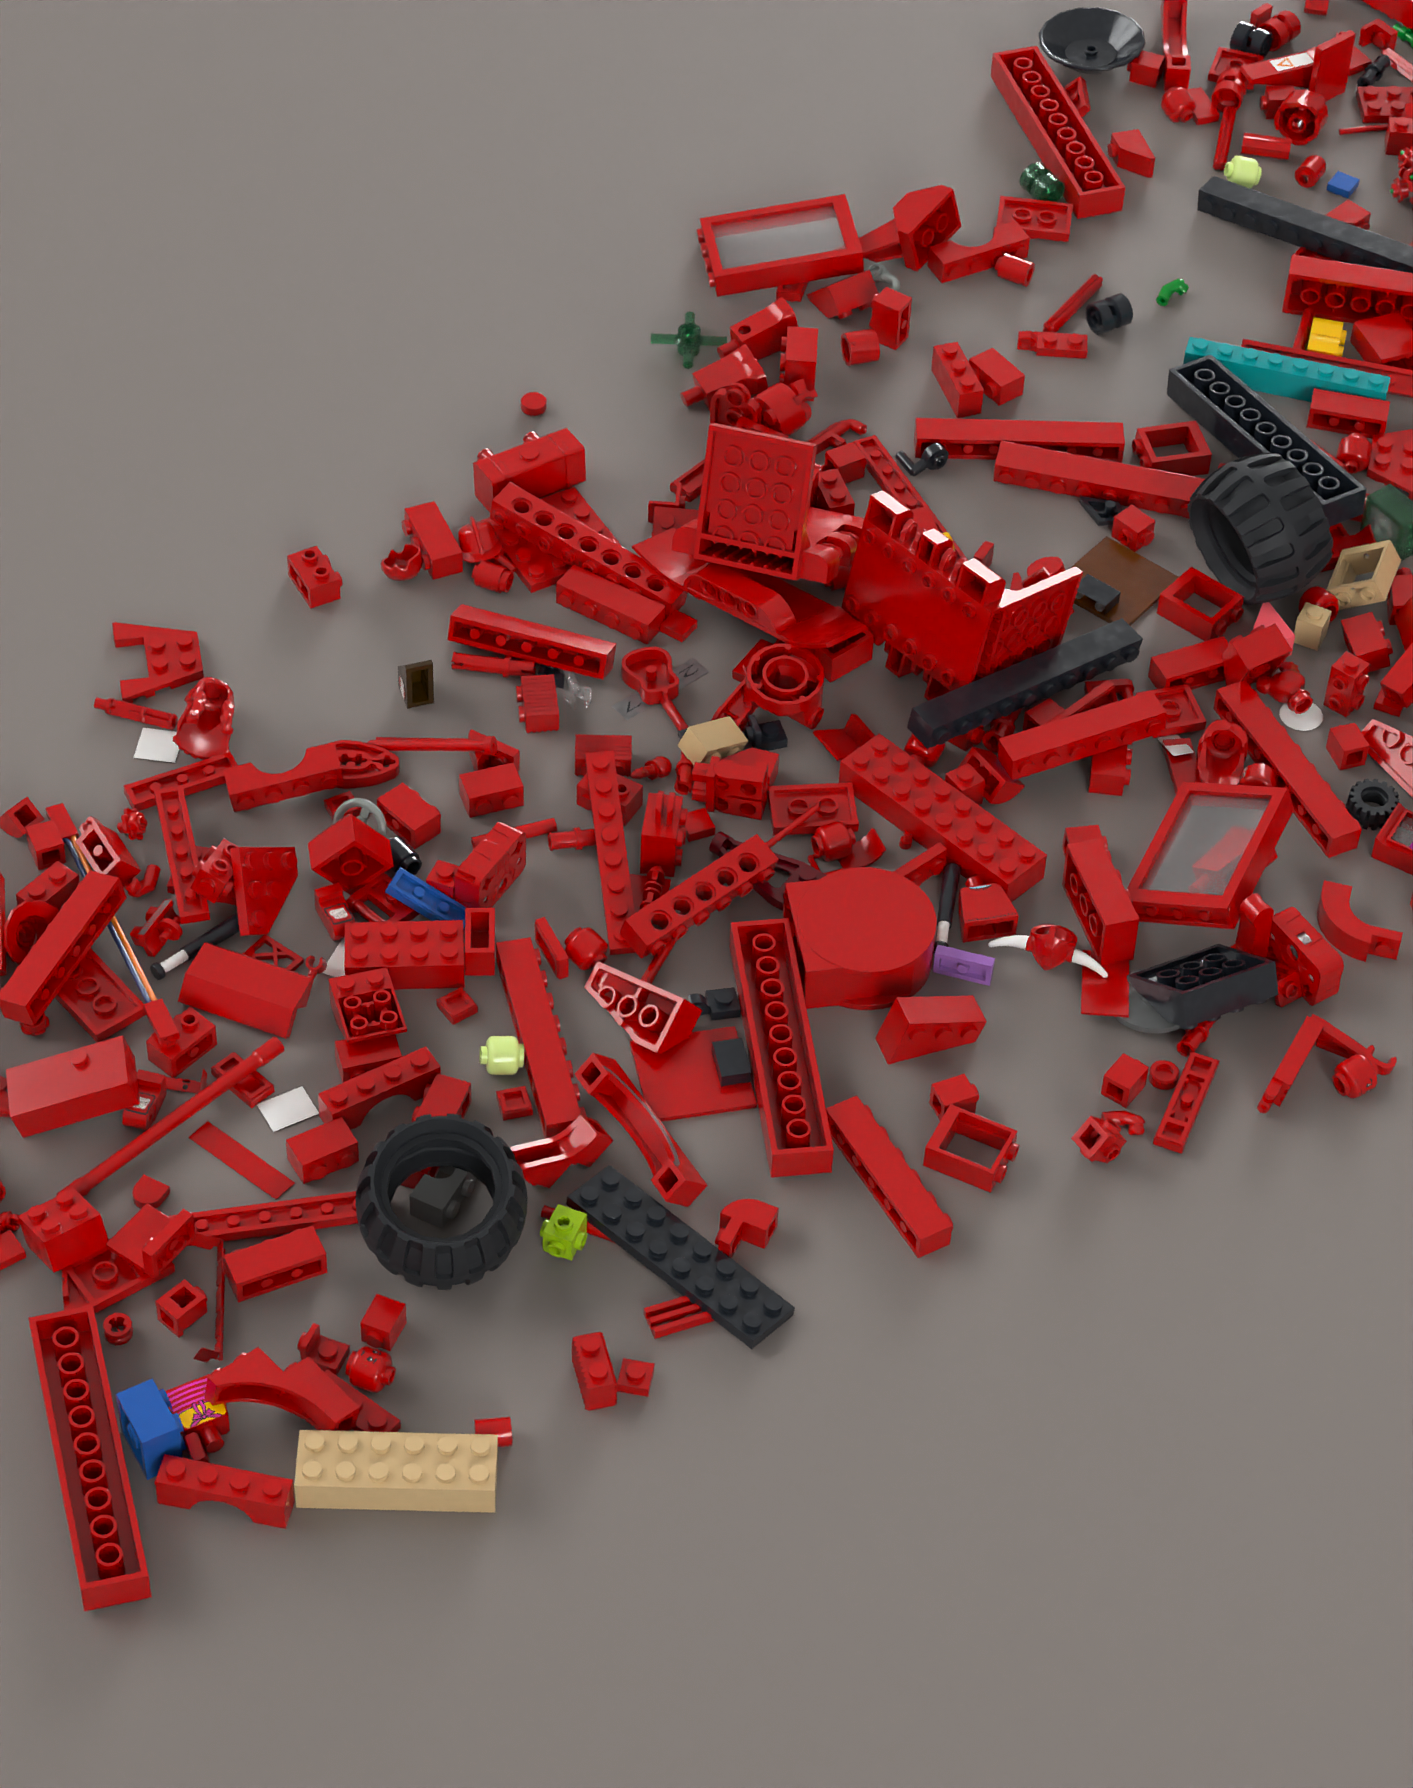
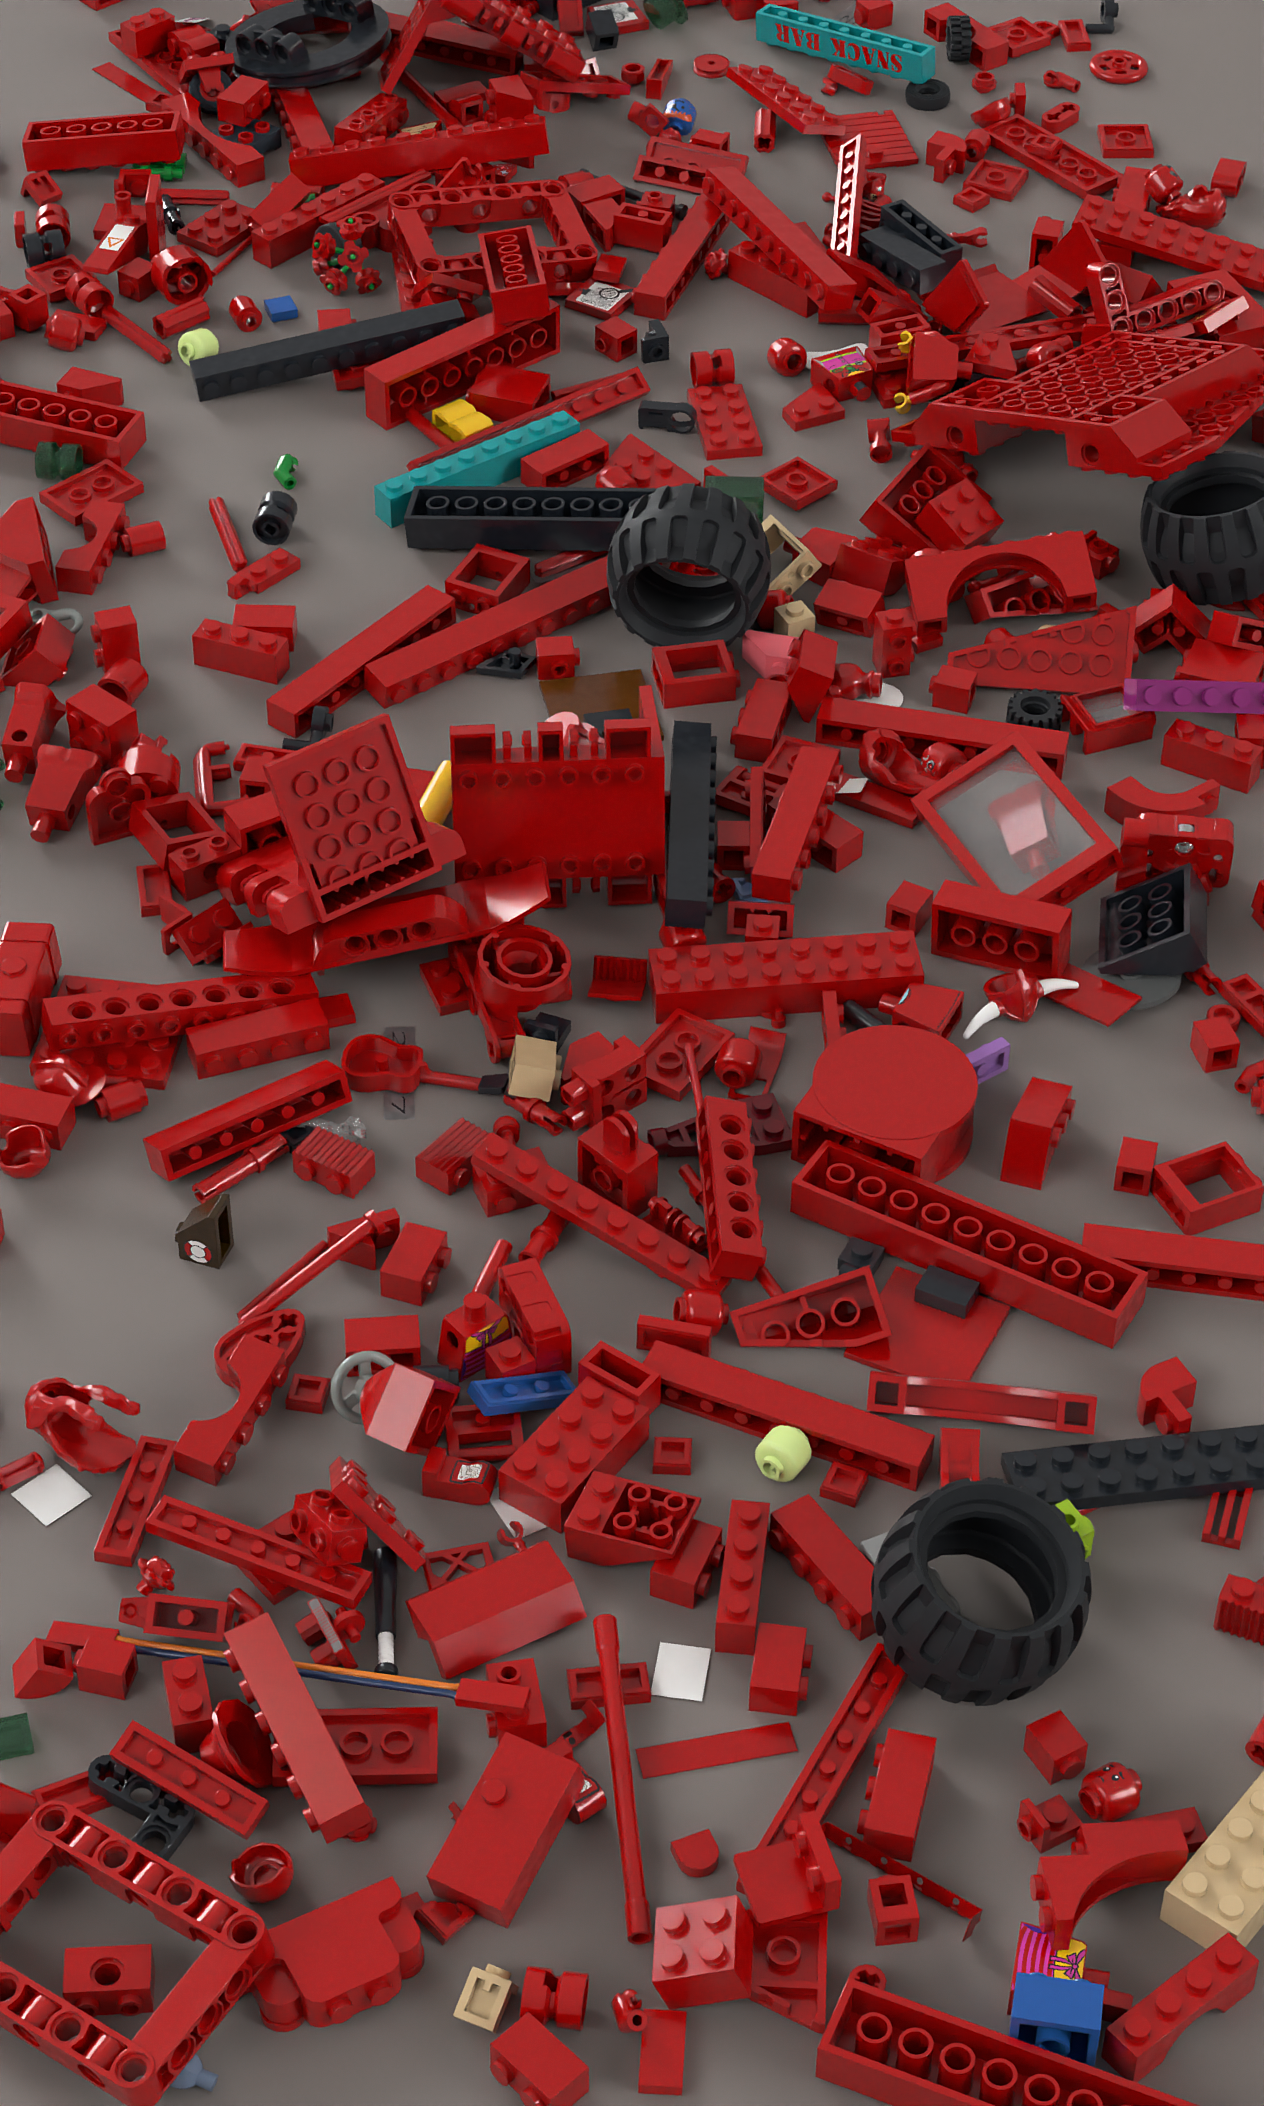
camera: 50 degrees left, 5 degrees down
(450, 843) = (469, 1332): none -> red torso

